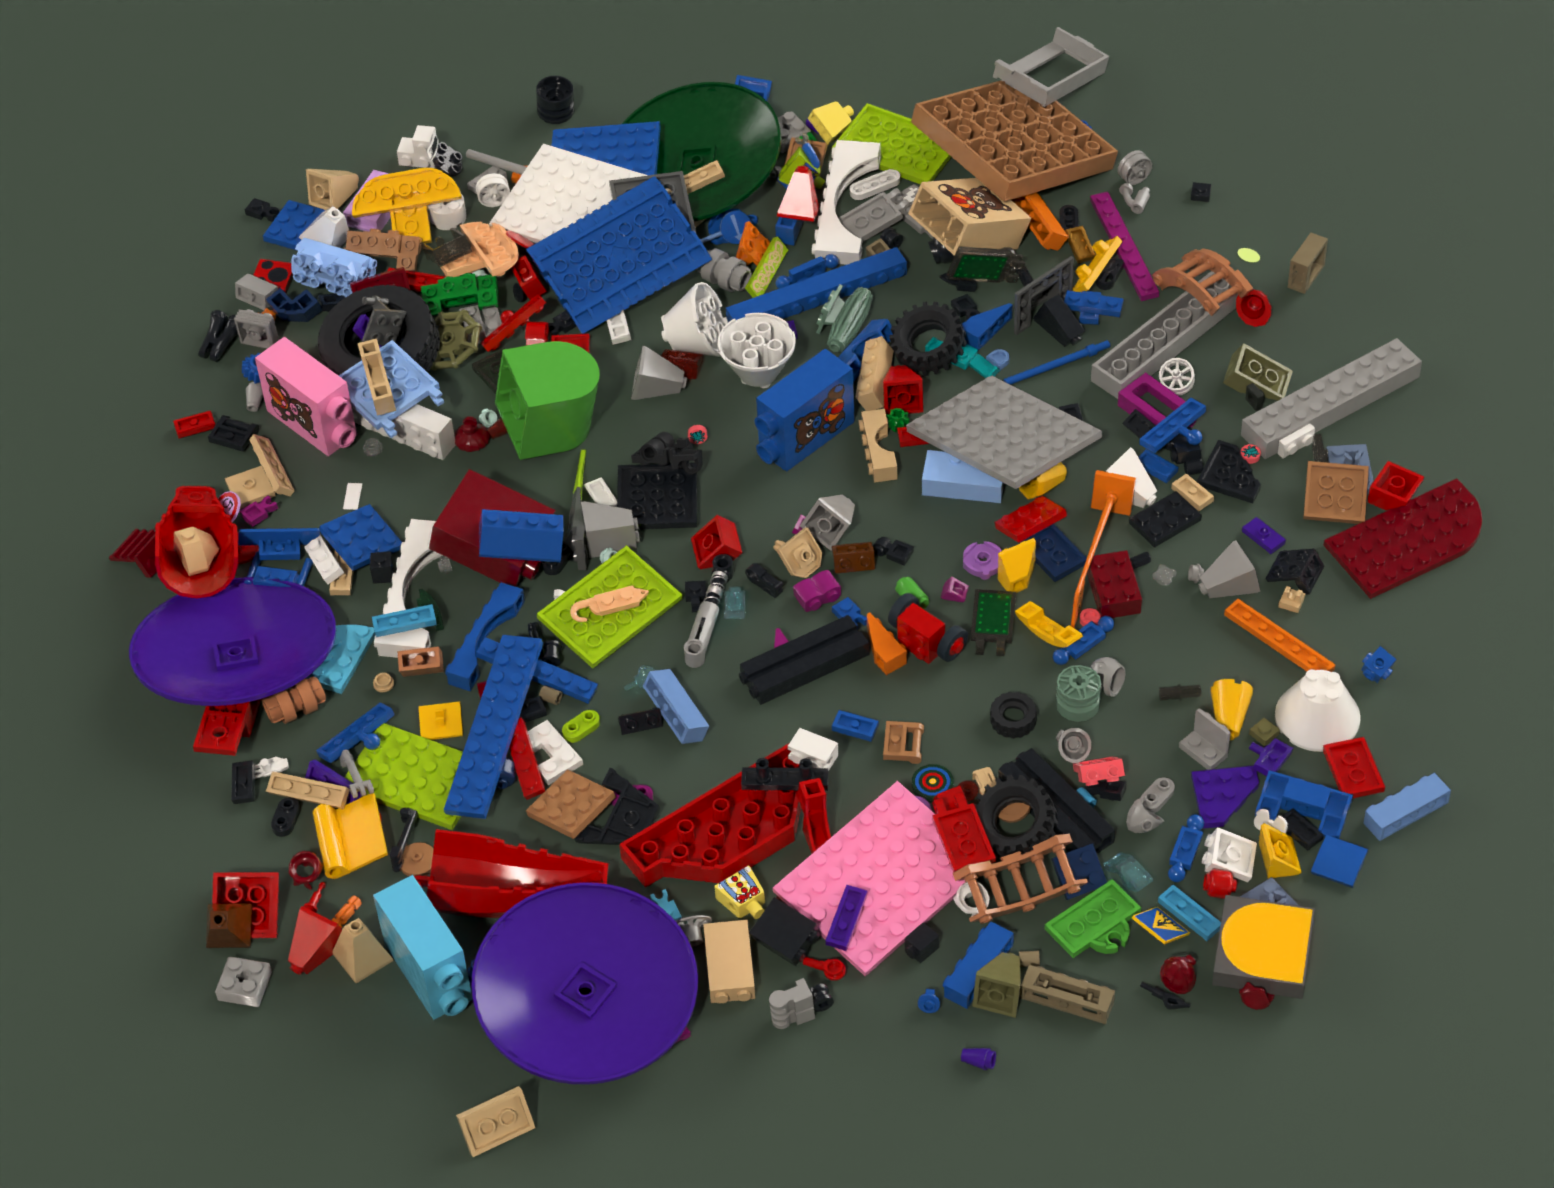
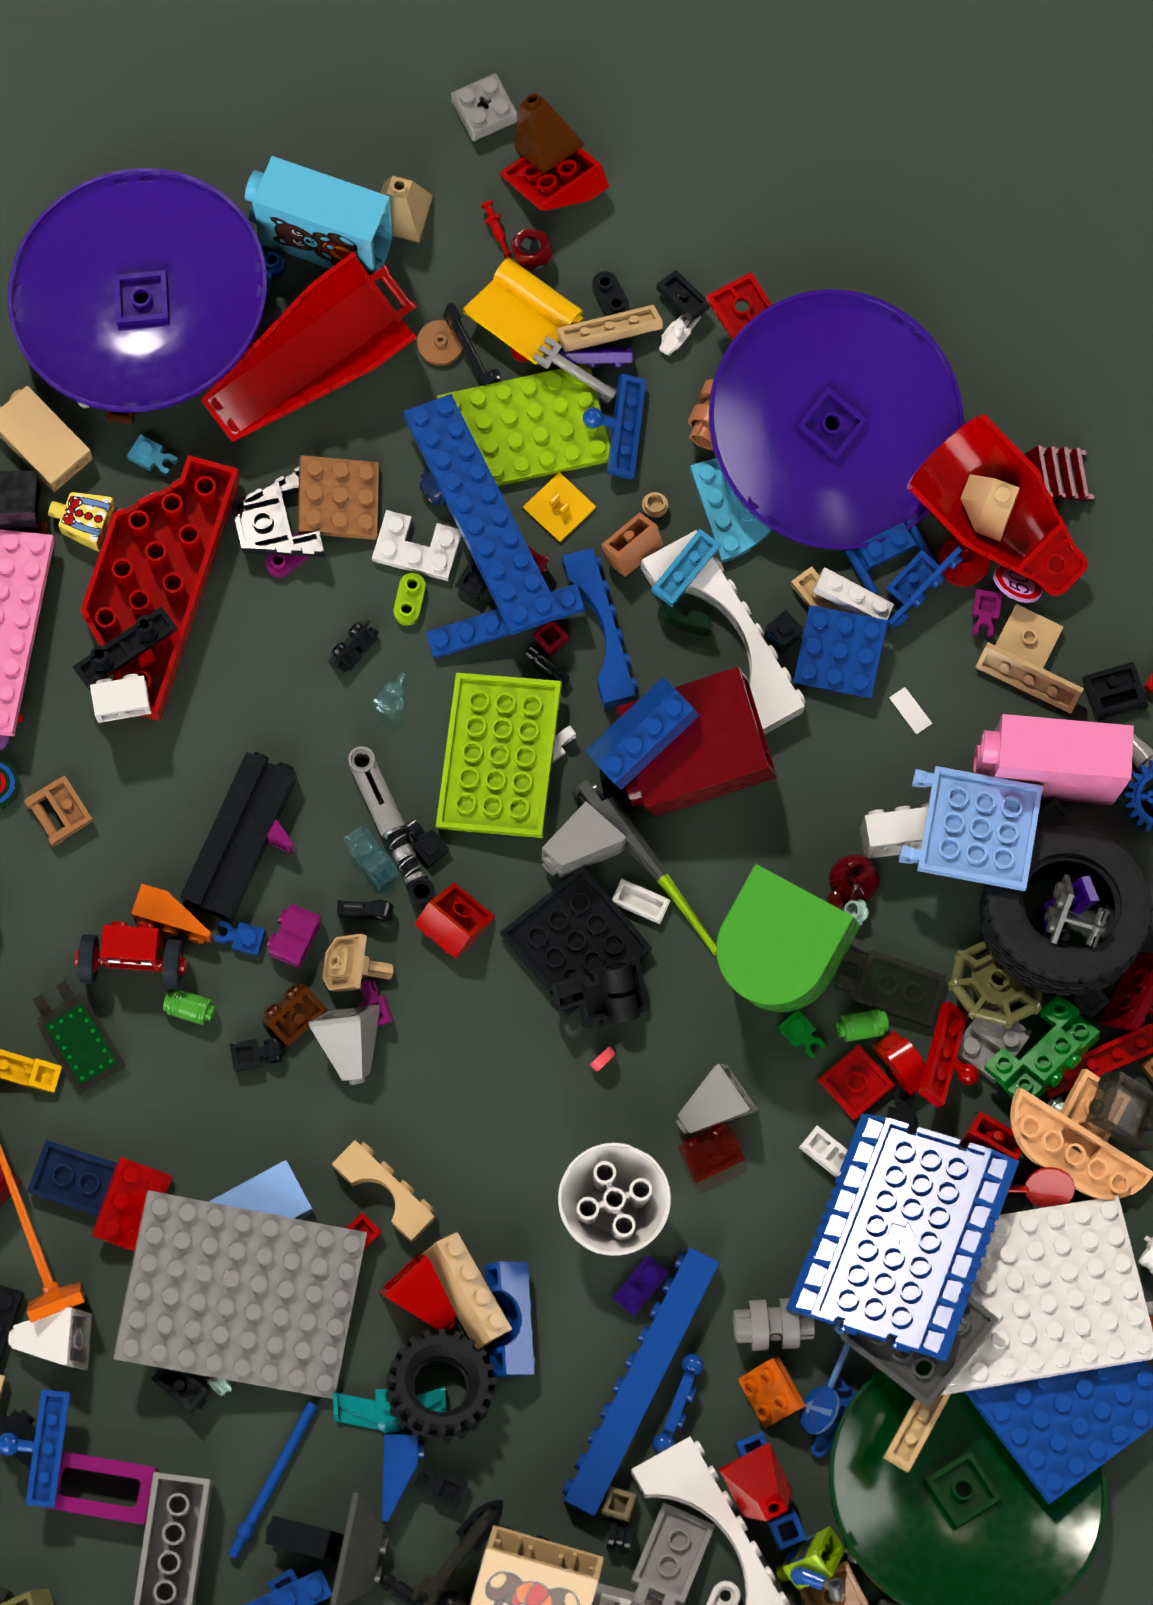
camera: 135 degrees right, 25 degrees up
(312, 941) = (452, 186): red slope -> none
(347, 910) = (456, 238): orange axle -> none
(376, 377) = (1002, 825): tan arch -> none
(495, 1121) = (124, 129): tan plate -> none
(526, 762) = (422, 510): red plate -> none
(550, 695) = (469, 609): dark tan hinge -> none
(552, 651) = (511, 657): black bush -> none
(606, 554) = (557, 820): light aqua plate -> none
(610, 602) = (497, 750): light nougat plate -> none
(676, 706) = (325, 680): medium blue brick -> none
(693, 930) = (101, 440): light grey wheel -> none
(695, 322) = (720, 1202): white cone -> none
(766, 268) = (730, 1373): lime tile -> none
(804, 410) = (483, 1143): blue brick -> none
(813, 804) = (65, 635): red arch -> none
(844, 317) = (571, 1357): sand green plate -> none
(855, 725) = (123, 794): blue plate -> none
(897, 419) = (387, 1238): green gear -> none
(954, 590) = (150, 1050): magenta slope -> none
(979, 568) = (136, 1101): medium lavender plate -> none
(998, 358) = (347, 1437): medium blue tile -> none
(1017, 566) = (91, 1117): yellow slope -> none
(1138, 424) = (95, 1442): black plate -> none
(1157, 466) = (30, 1396): blue tile -> none
(1177, 375) = (106, 1552): white wheel -> none

